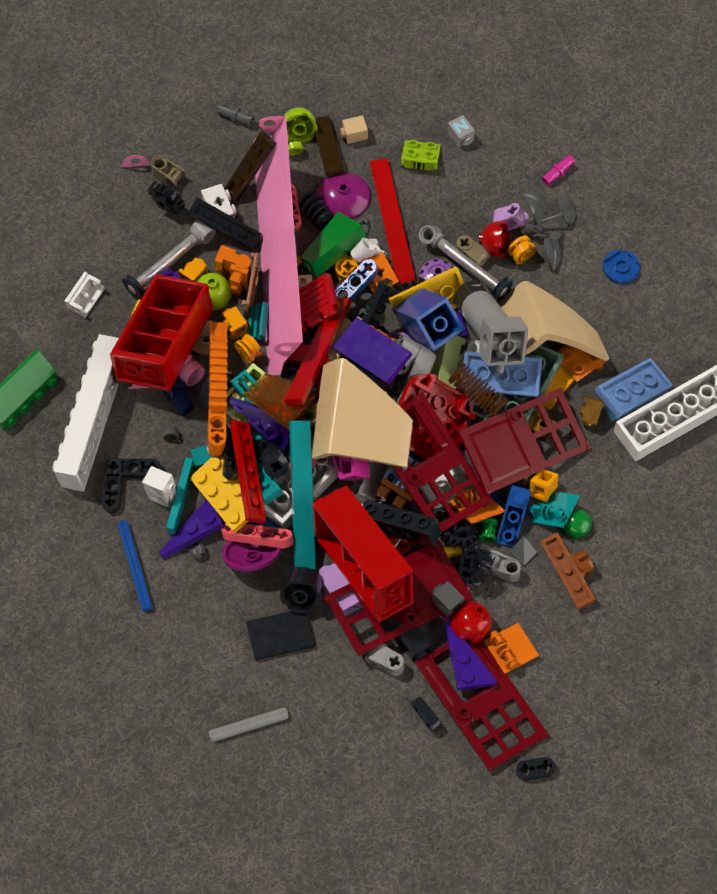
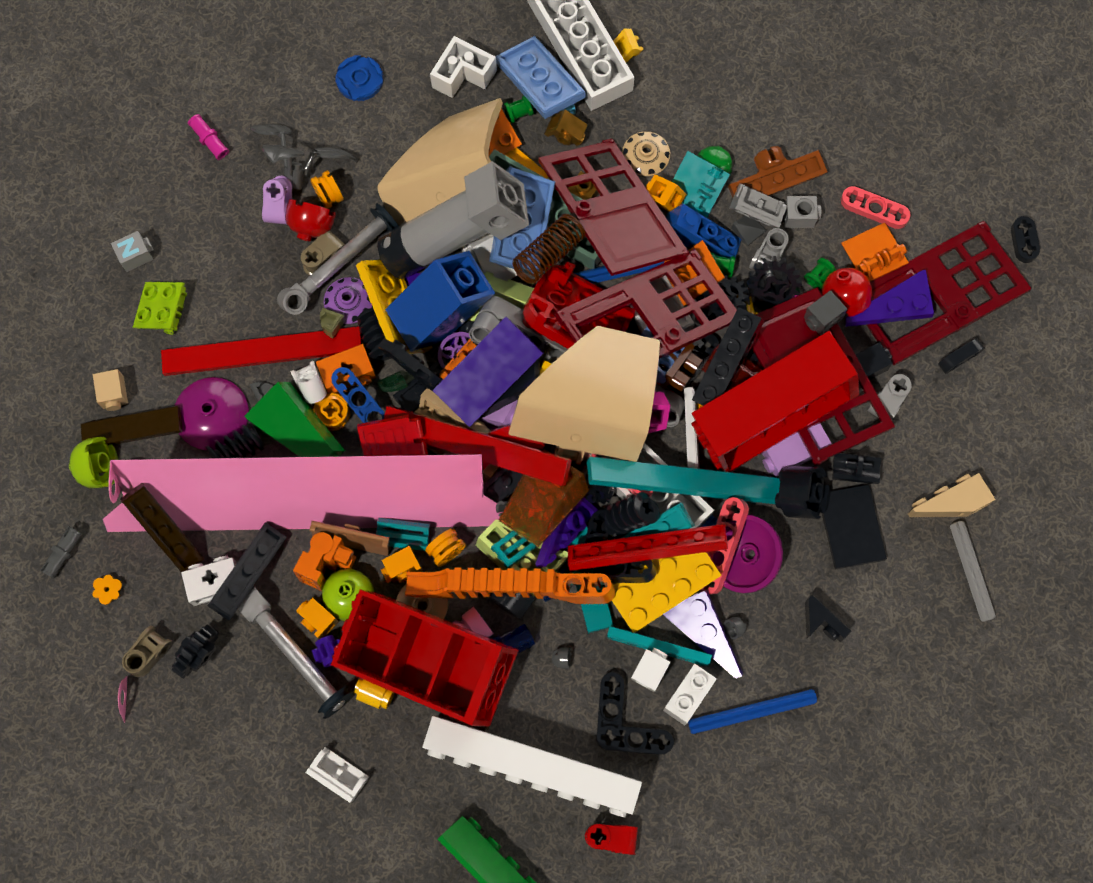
camera: 85 degrees left, 10 degrees up
(41, 473) = (617, 838): none -> red piece
(145, 518) = (689, 694): none -> white brick
(207, 608) = (819, 615): none -> black slope
(211, 145) = (100, 586): none -> light orange plant
(305, 714) = (959, 501): none -> tan slope
(324, 632) = (856, 468): none -> black hips
(417, 262) = (331, 322): none -> olive tile
(489, 604) = (813, 277): none -> green bush
(539, 553) = (758, 206): none -> light grey hinge
(540, 581) = (794, 219): none -> light grey brick
(552, 664) = (873, 198): none -> coral beam
(581, 482) = (646, 163): none -> tan dish
(604, 373) = (518, 109): none -> green bush
(637, 330) = (459, 63): none -> white brick
(673, 452) = (627, 44): none -> yellow tile

